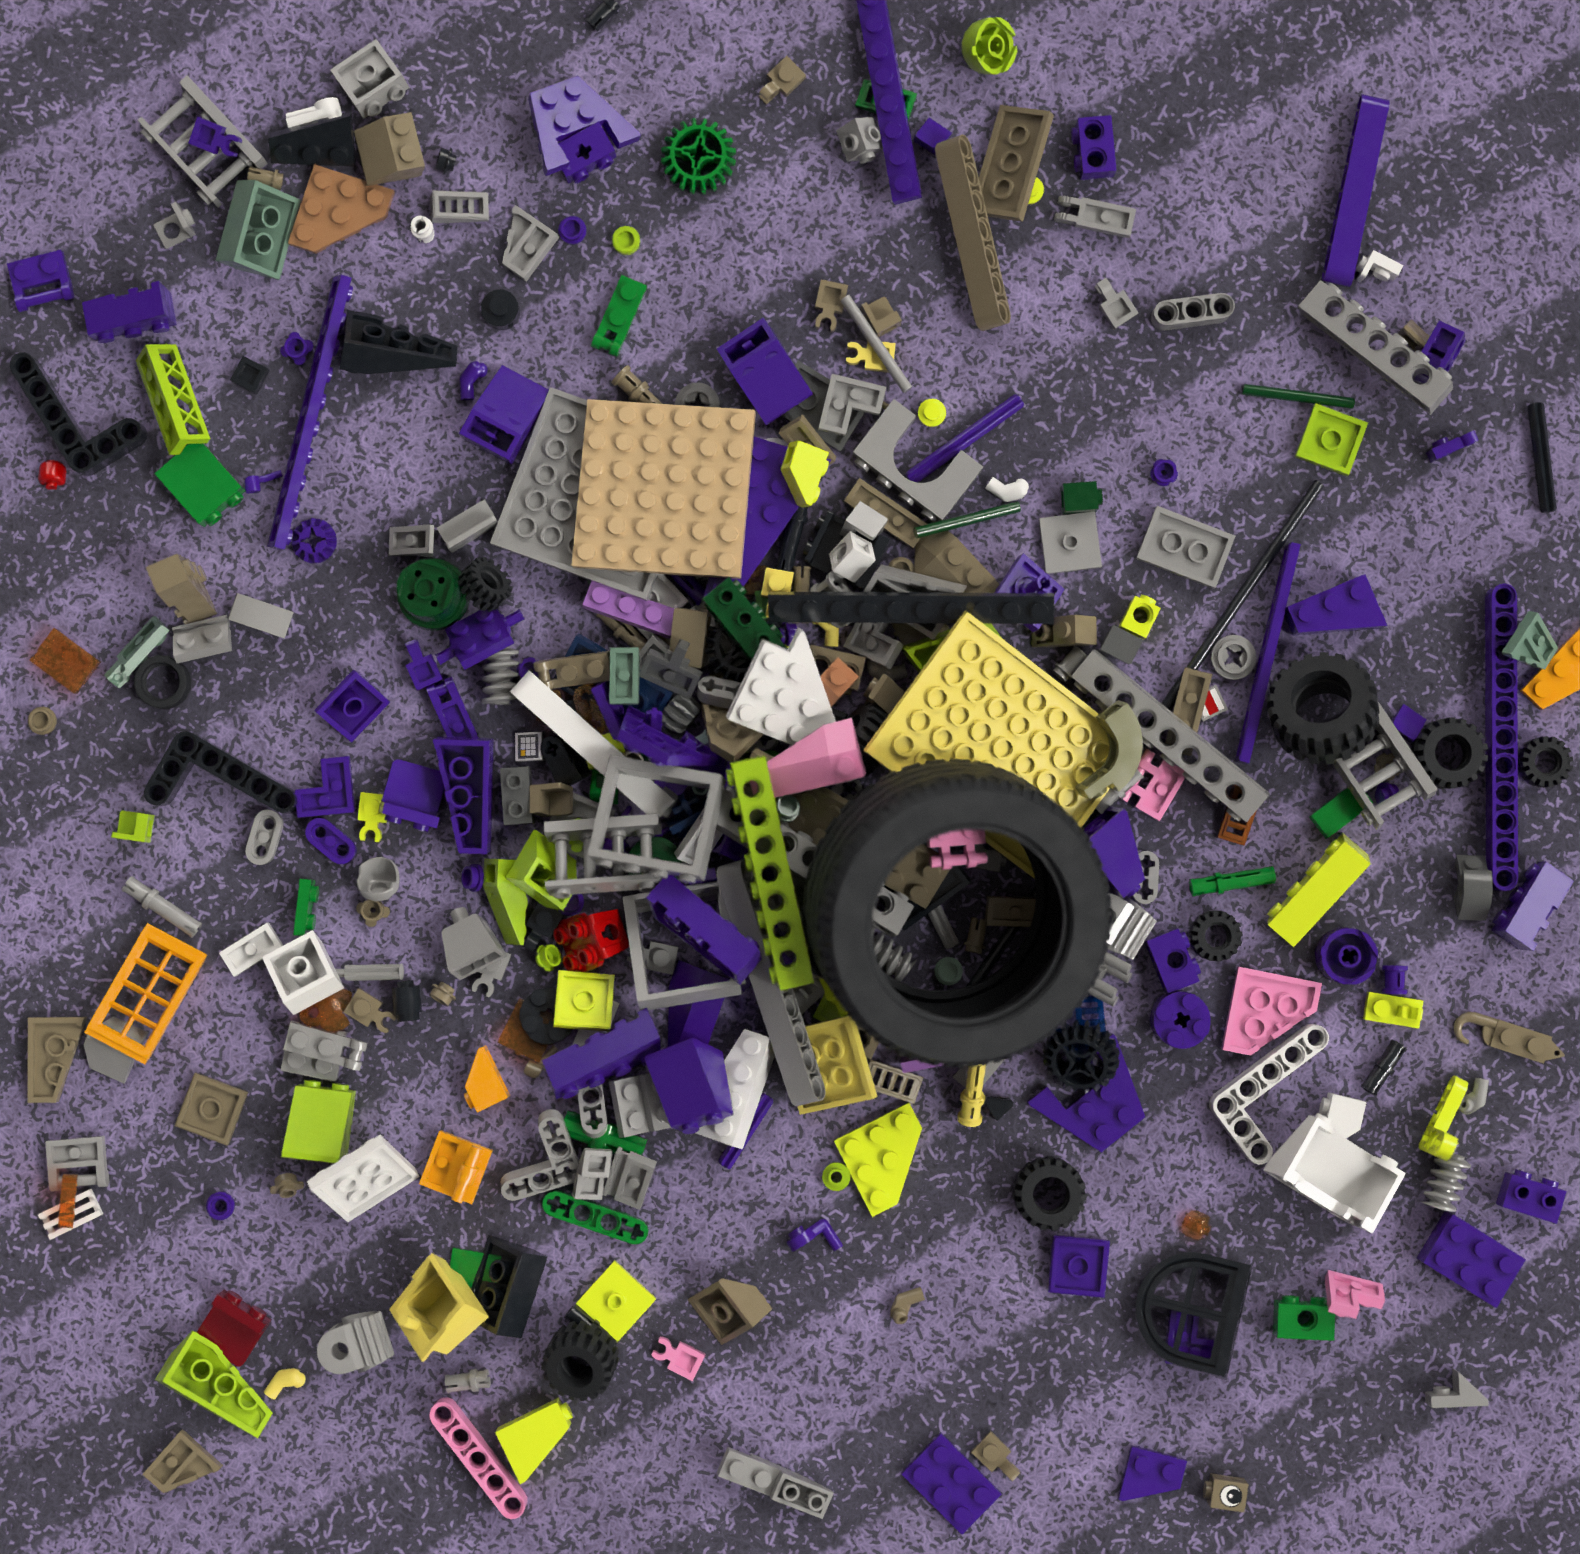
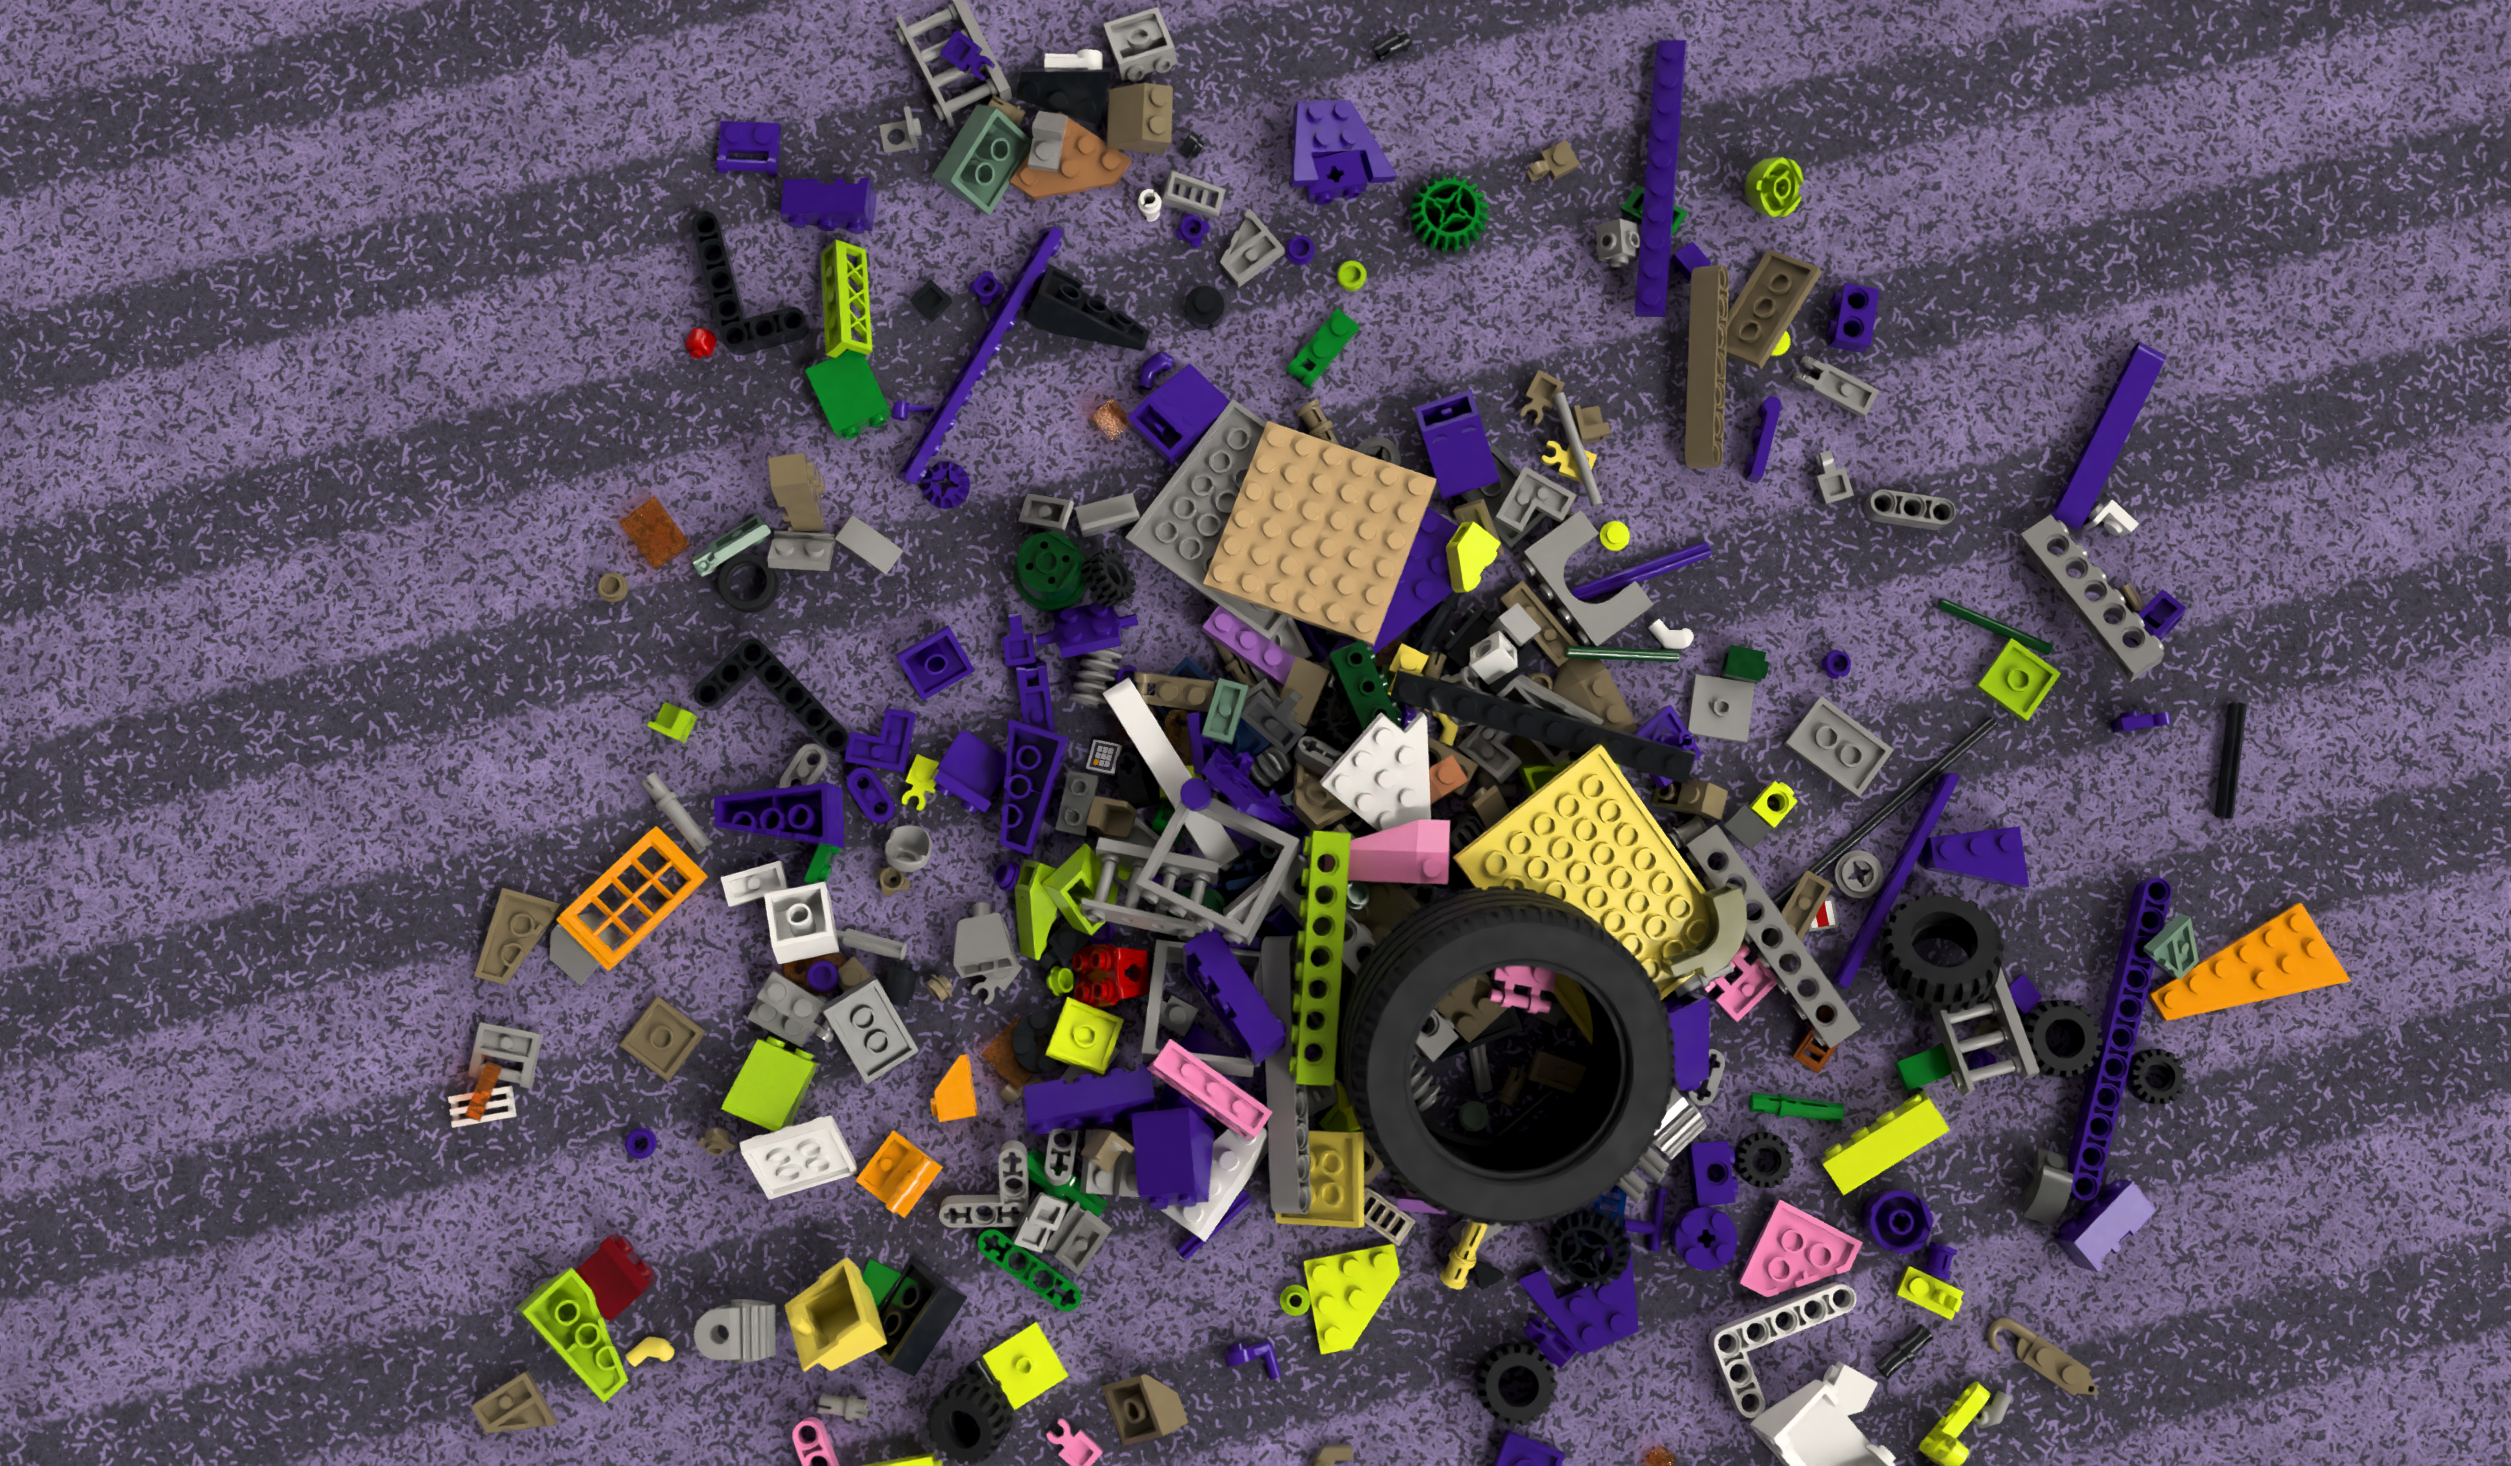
camera: 10 degrees right, 5 degrees down
(267, 878) = (790, 813): none -> dark purple wedge
(311, 196) = (1047, 141): none -> light grey slope
(336, 1014) = (822, 976): none -> dark purple tile
(391, 1049) = (869, 1029): none -> plate
(445, 437) = (1110, 419): none -> clear orange slope
(467, 232) = (1191, 221): none -> dark purple plate
(618, 760) = (1196, 794): none -> dark purple tile
(629, 1094) = (1104, 1149): none -> dark tan panel
(706, 1017) = (1210, 1090): none -> bright pink fence
(1042, 284) = (1762, 438): none -> dark purple plate
(1071, 1150) = (1551, 1343): none -> dark purple plate
(1136, 1020) = (1654, 1227): none -> dark purple piece

